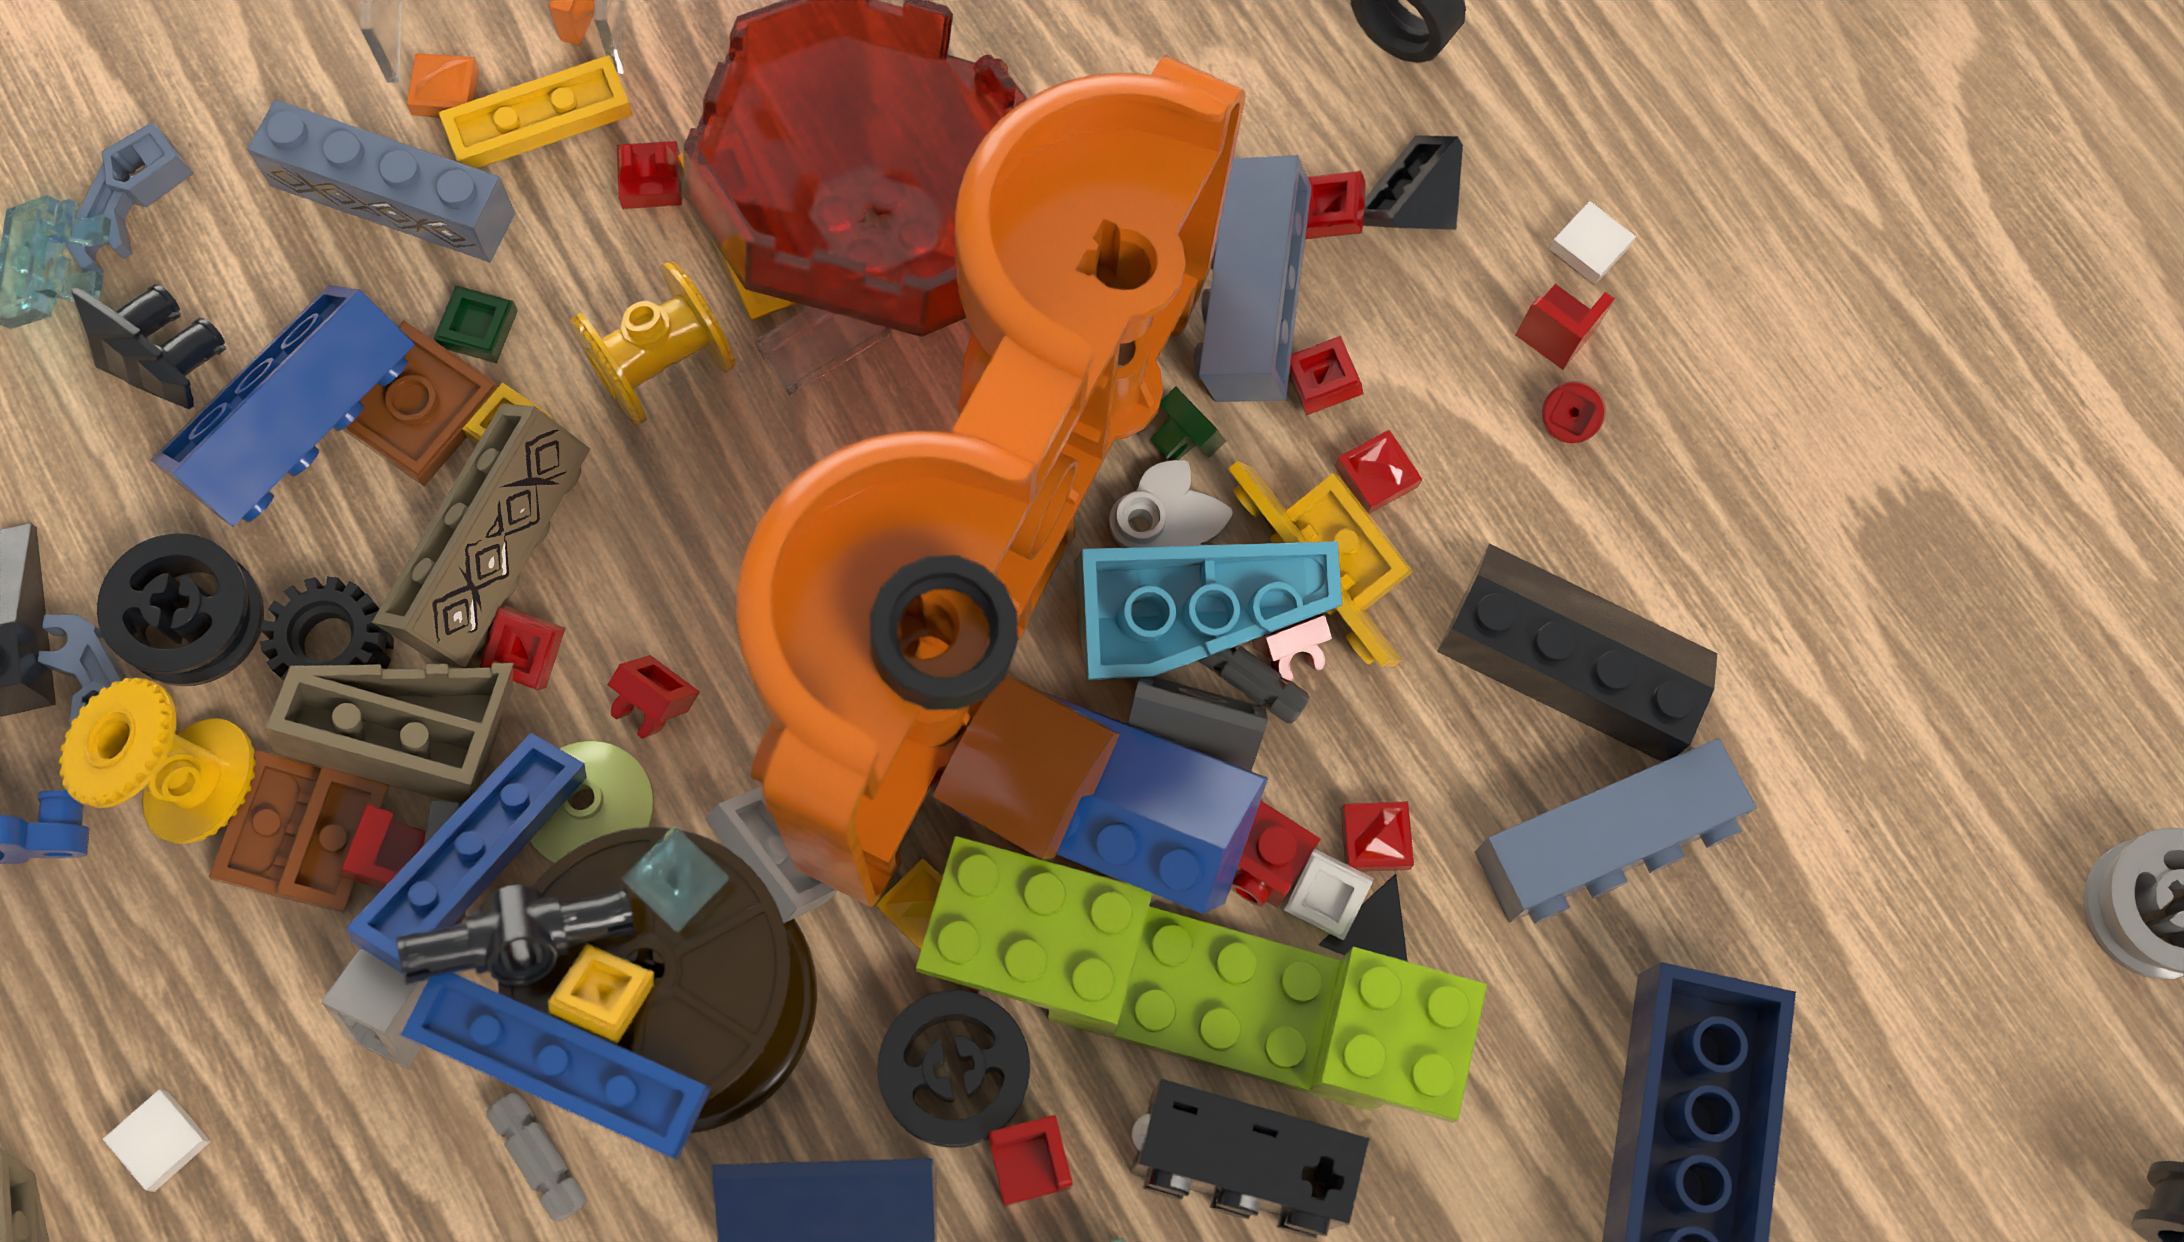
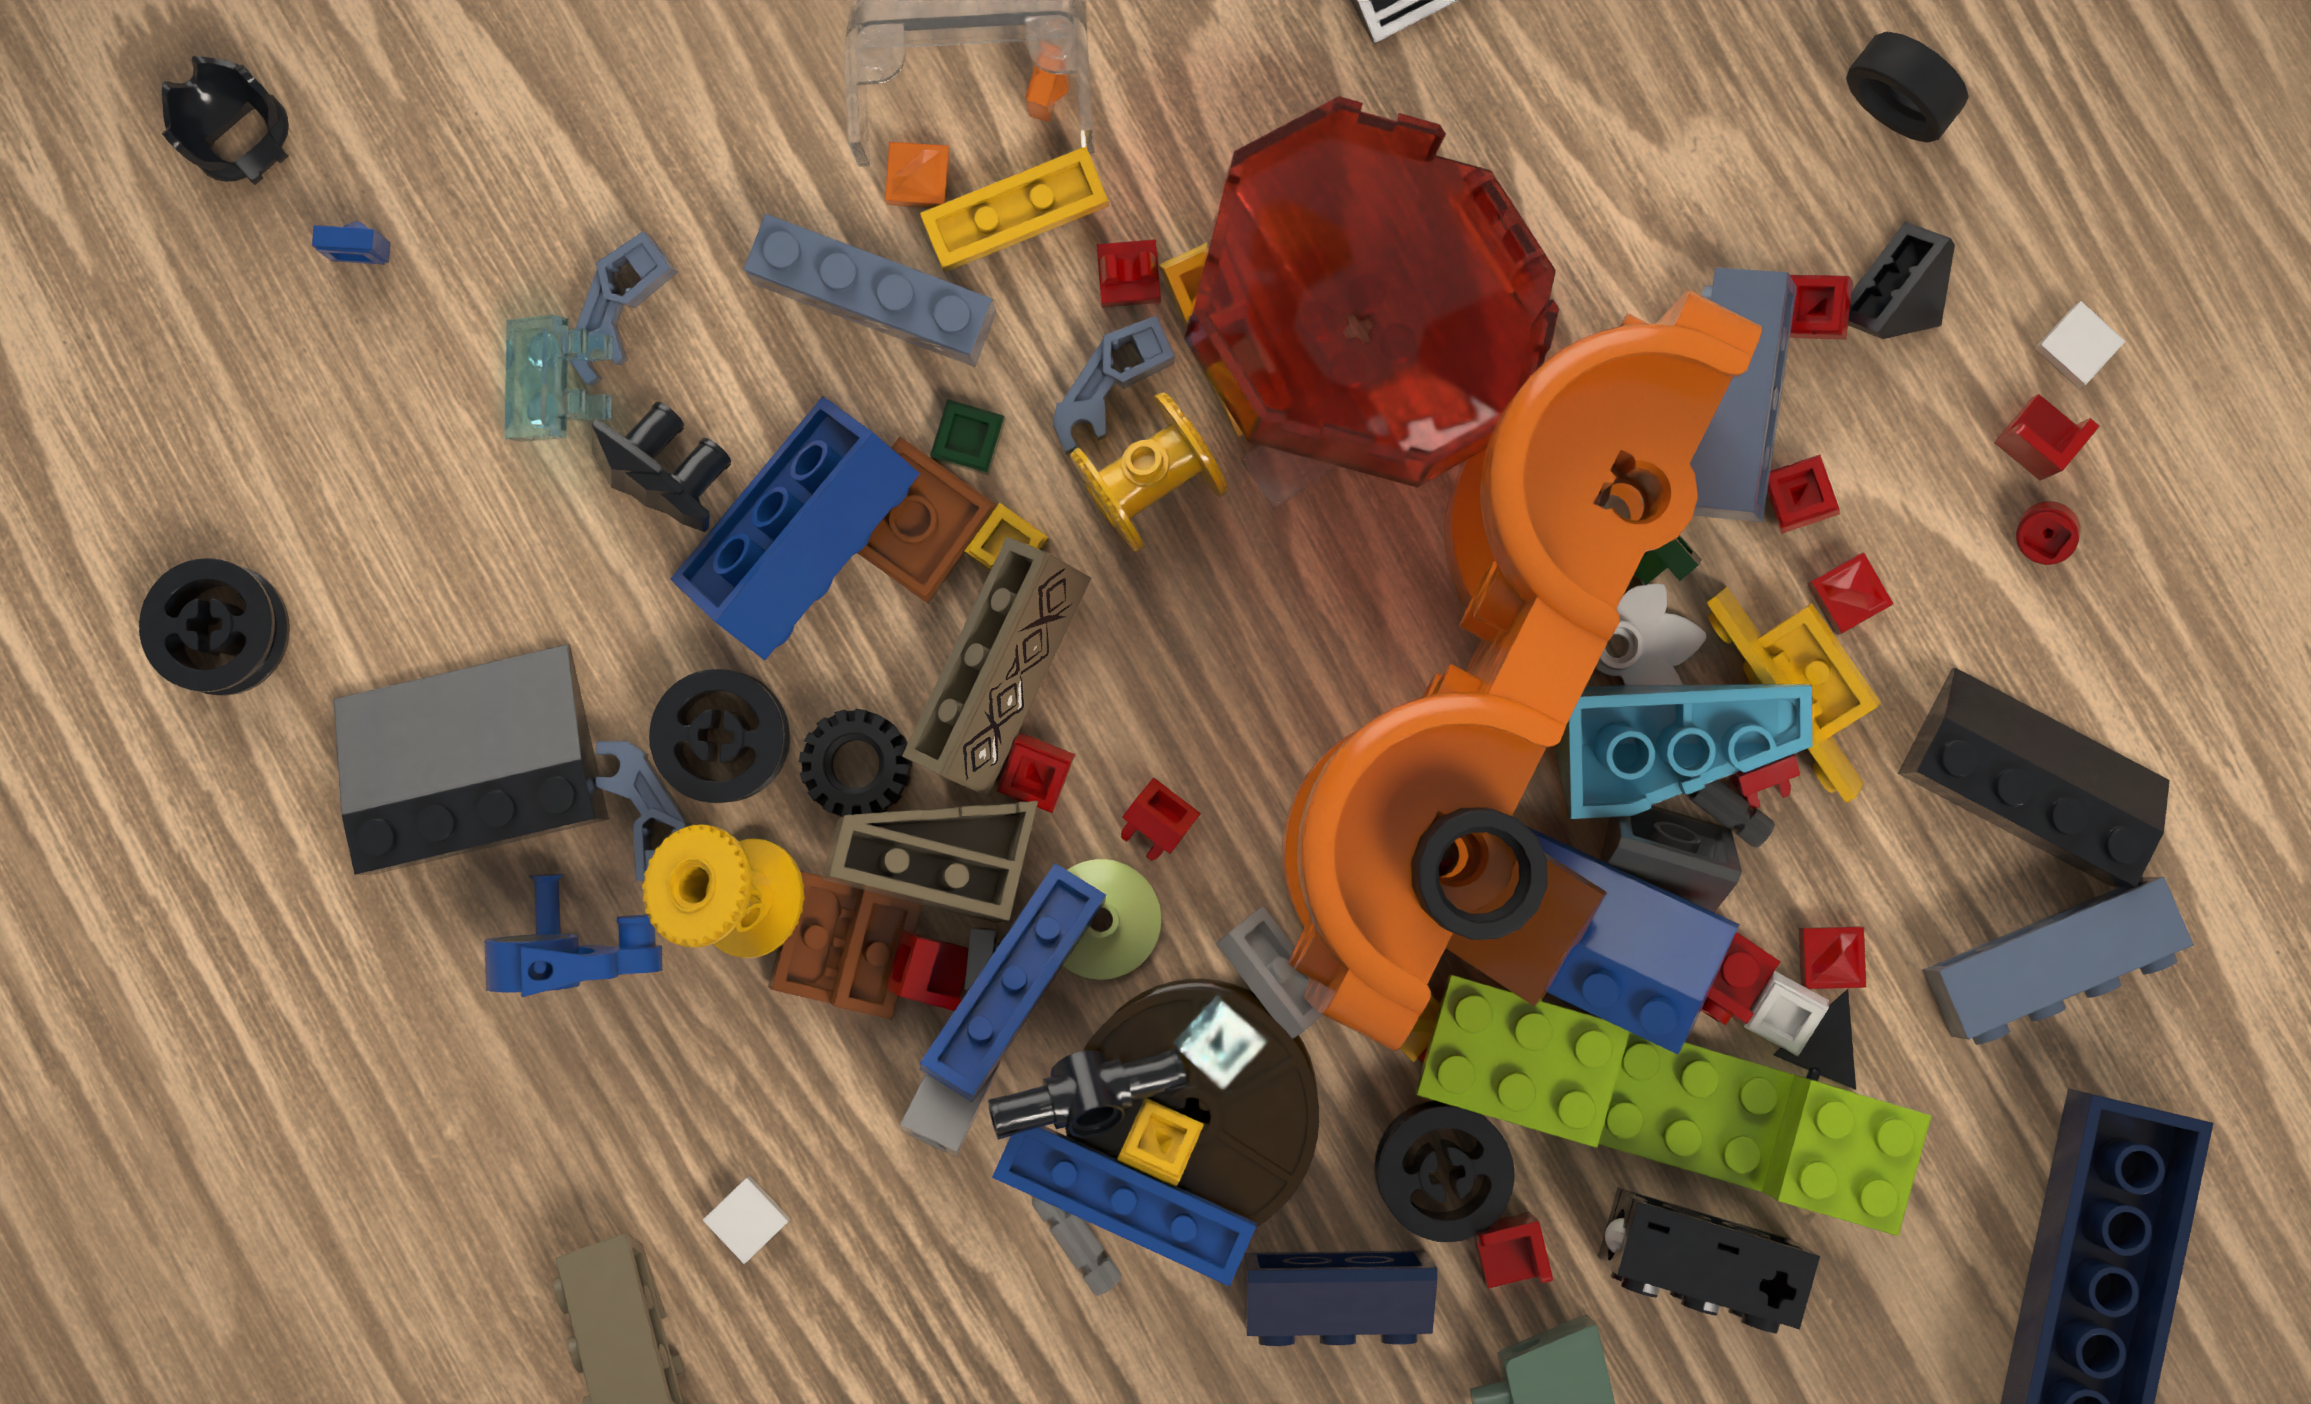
camera: 10 degrees right, 15 degrees up
(606, 273) = (1087, 395): none -> sand blue piece

